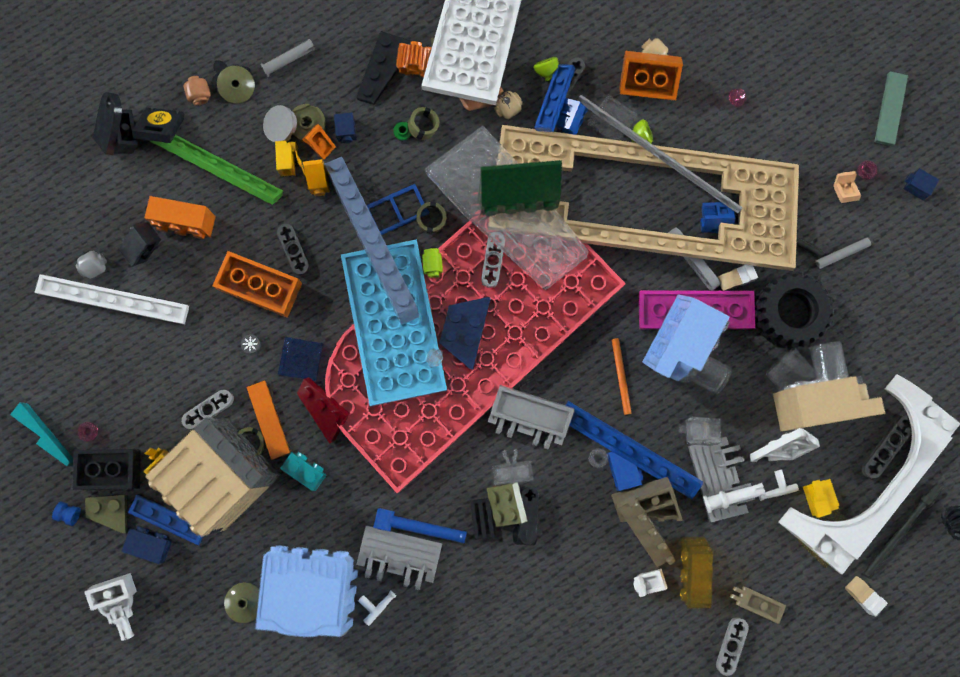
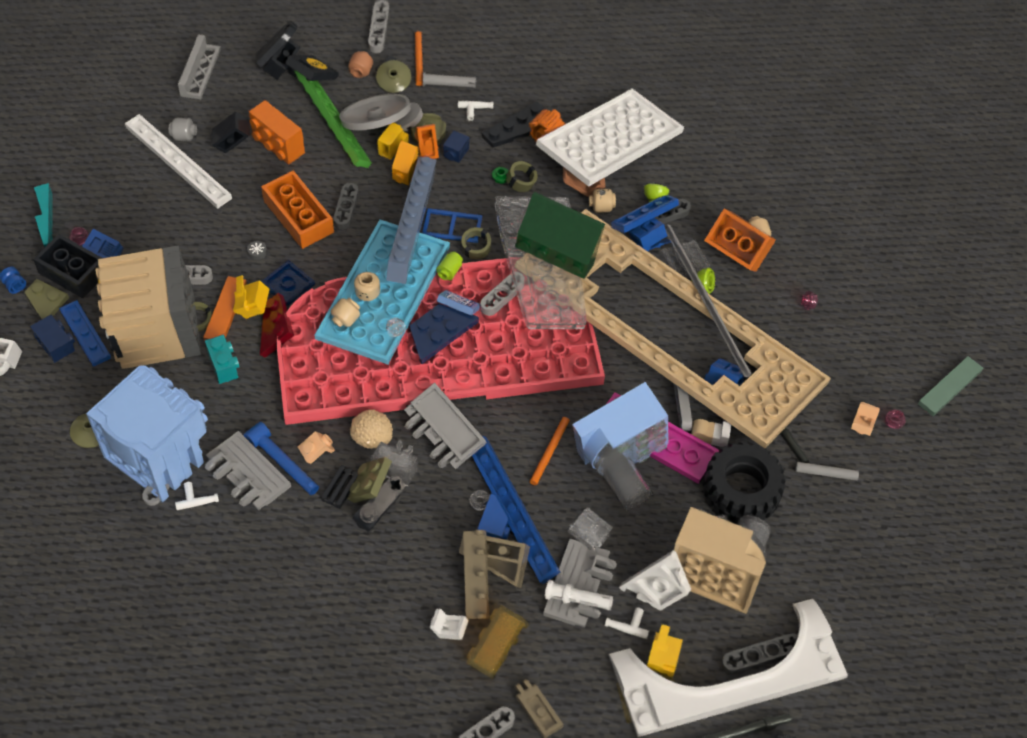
camera: 30 degrees right, 25 degrees down
(46, 190) = (192, 66): none -> light grey fence
(118, 433) = (102, 245): none -> blue piece
(181, 35) = (378, 26): none -> light grey beam
(242, 48) = (418, 58): none -> orange bar
(252, 139) = (375, 112): none -> light grey dish
(284, 399) = (250, 298): none -> yellow piece
(324, 72) = (470, 105): none -> white piece
(383, 371) = (345, 312): none -> tan head
(384, 335) = (367, 286): none -> tan head
(438, 498) = (315, 446): none -> light nougat bracket
(464, 293) = (458, 302): none -> medium blue tile
(473, 456) = (371, 428): none -> tan hair
(920, 184) = (938, 455): dark blue brick -> none

